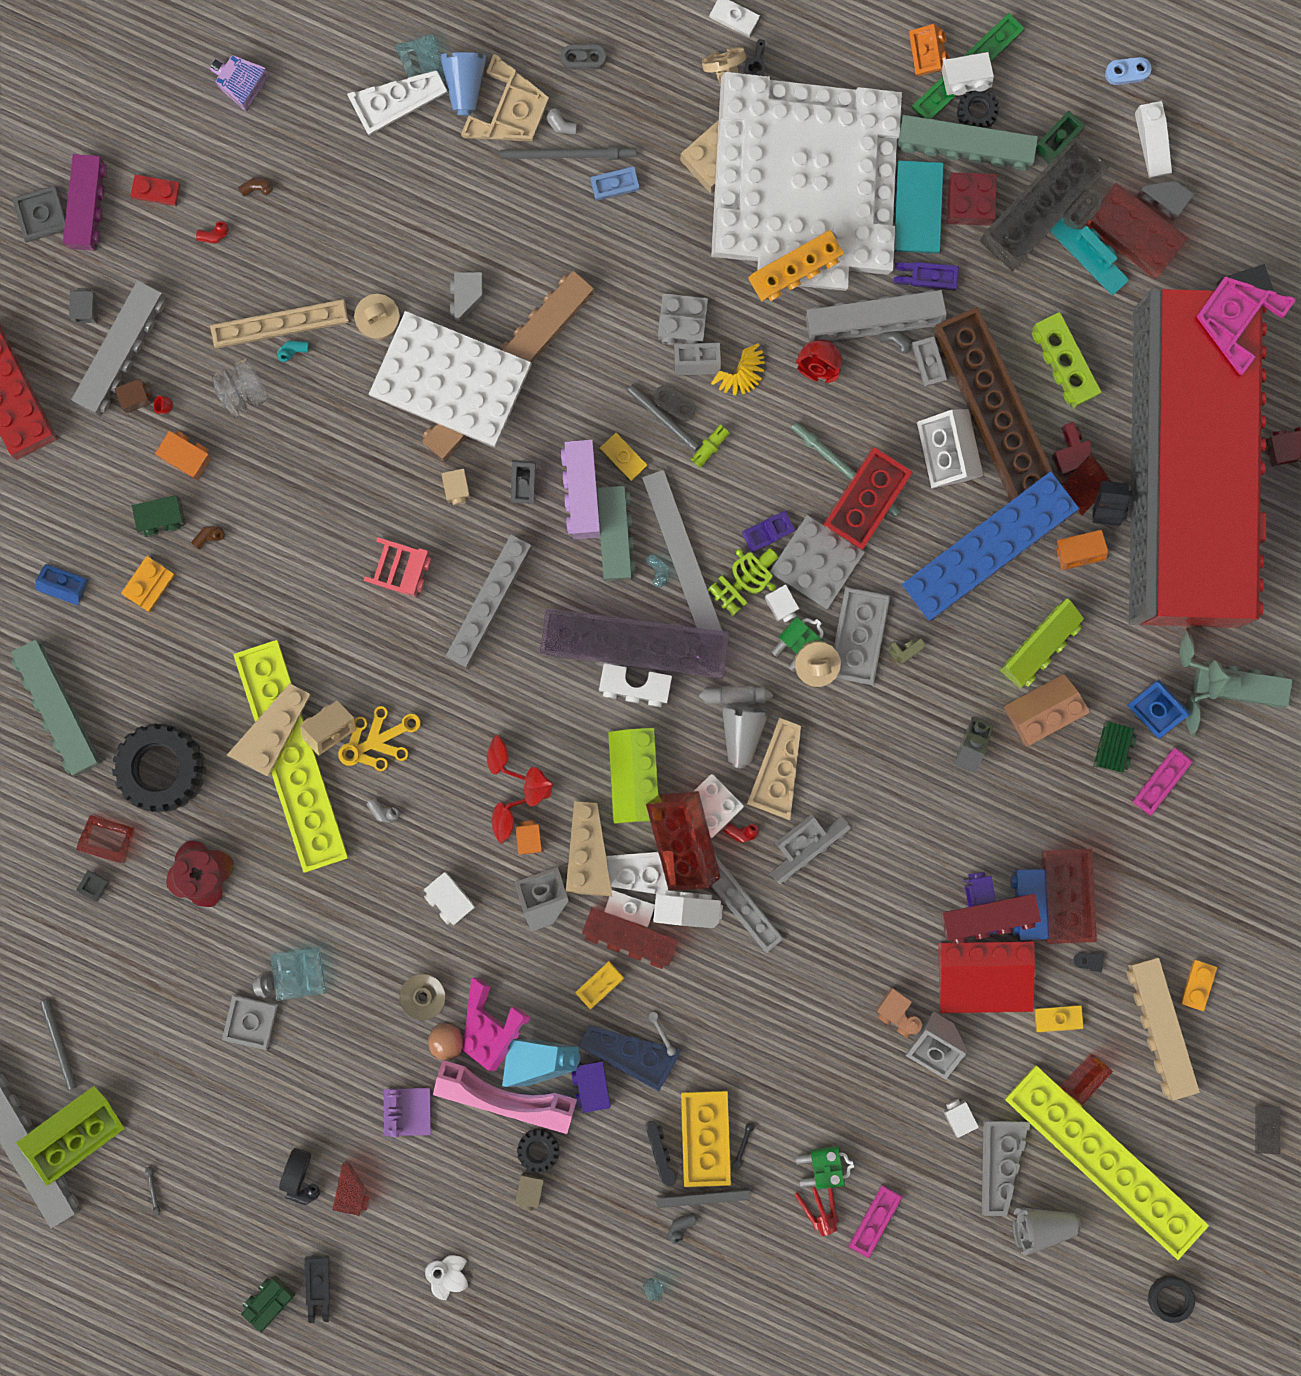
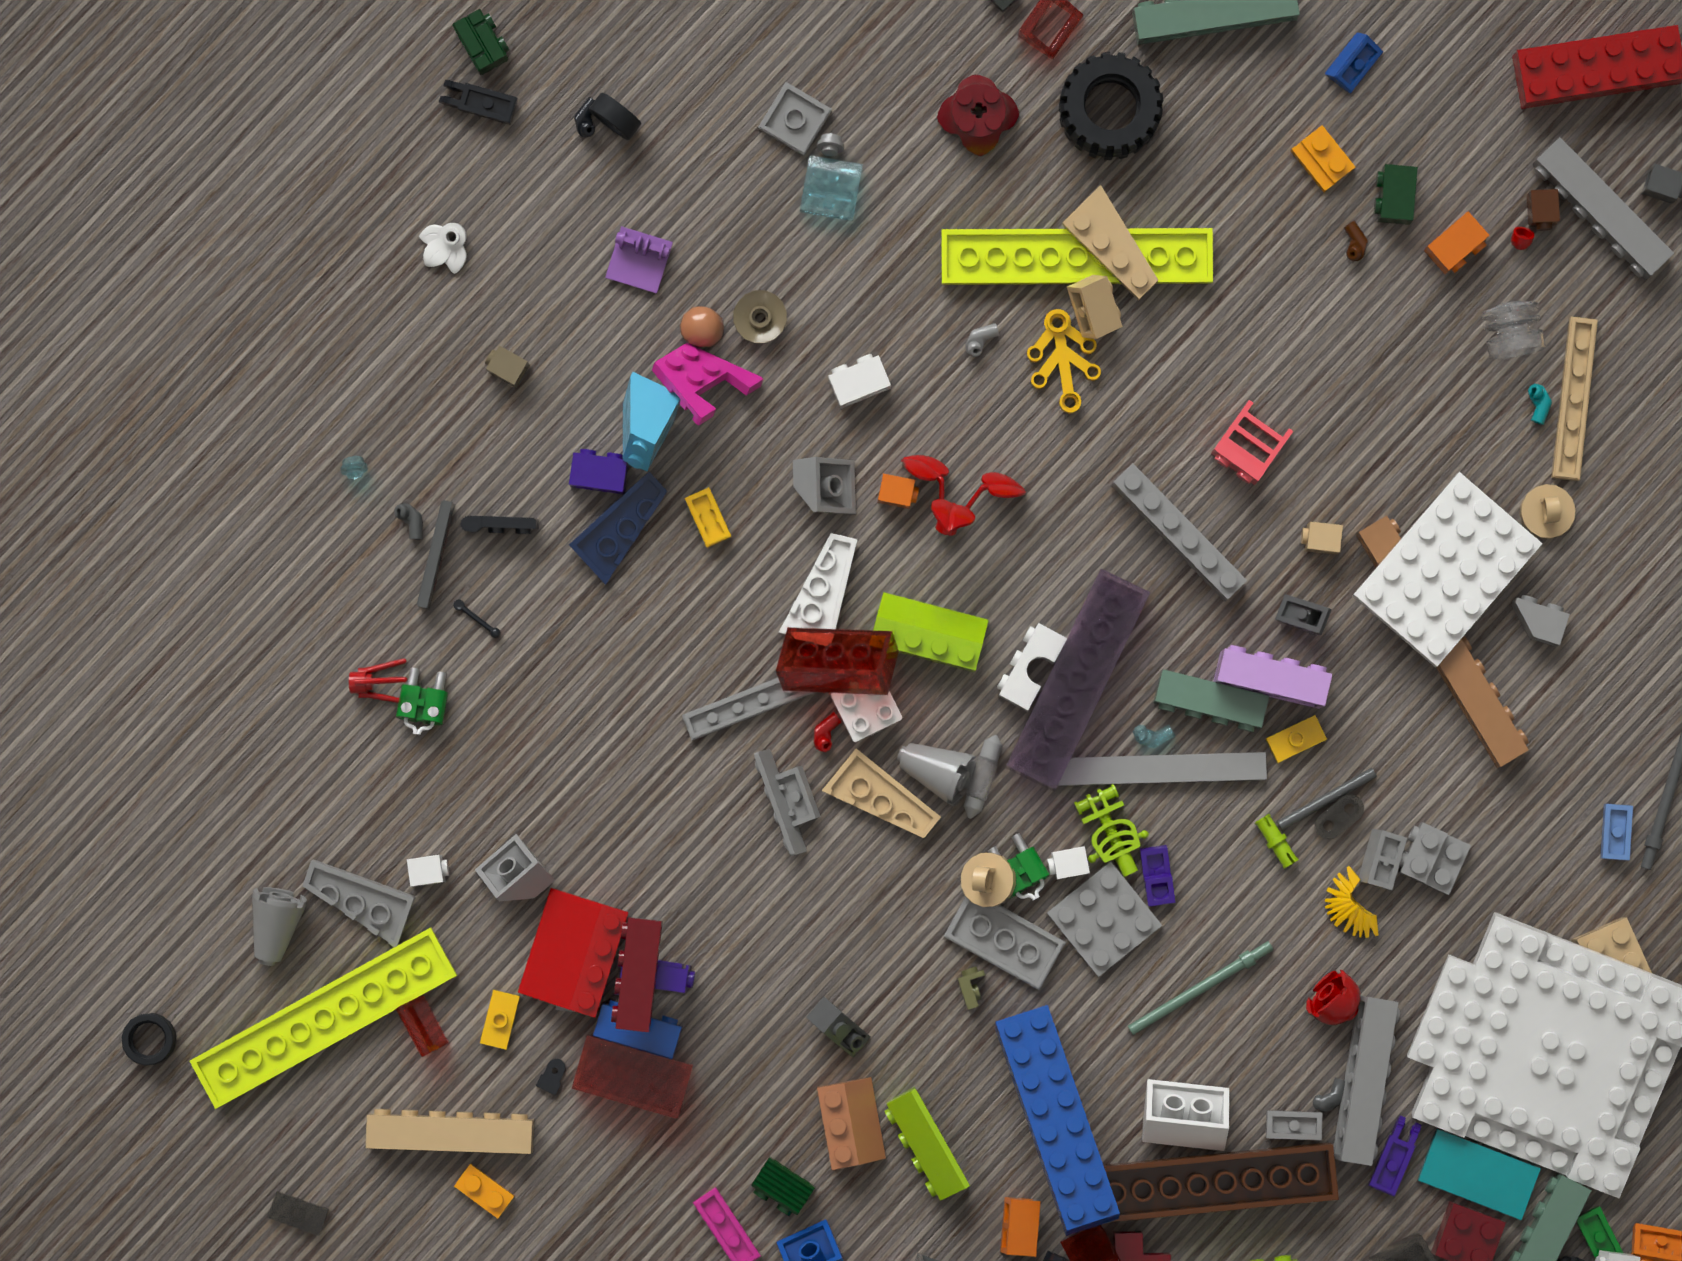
camera: 110 degrees right, 0 degrees up
(350, 1192) = (571, 169): clear red slope -> none
(462, 1086) = (589, 412): bright pink arch -> none
(552, 1150) = (536, 378): black tyre -> none
(587, 855) = (855, 549): tan wing -> none
(629, 908) = (782, 579): white plate -> none
(630, 937) = (749, 568): clear red brick -> none
(653, 1017) = (651, 566): light grey hinge -> none
(687, 909) = (759, 641): white hinge -> none
(705, 1138) = (499, 579): yellow plate -> none
(796, 265) = (1450, 1003): light orange brick -> none
(867, 498) = (1158, 998): red brick -> none
(875, 1221) = (345, 738): dark pink tile -> none
(893, 1009) = (571, 835): nougat brick -> none

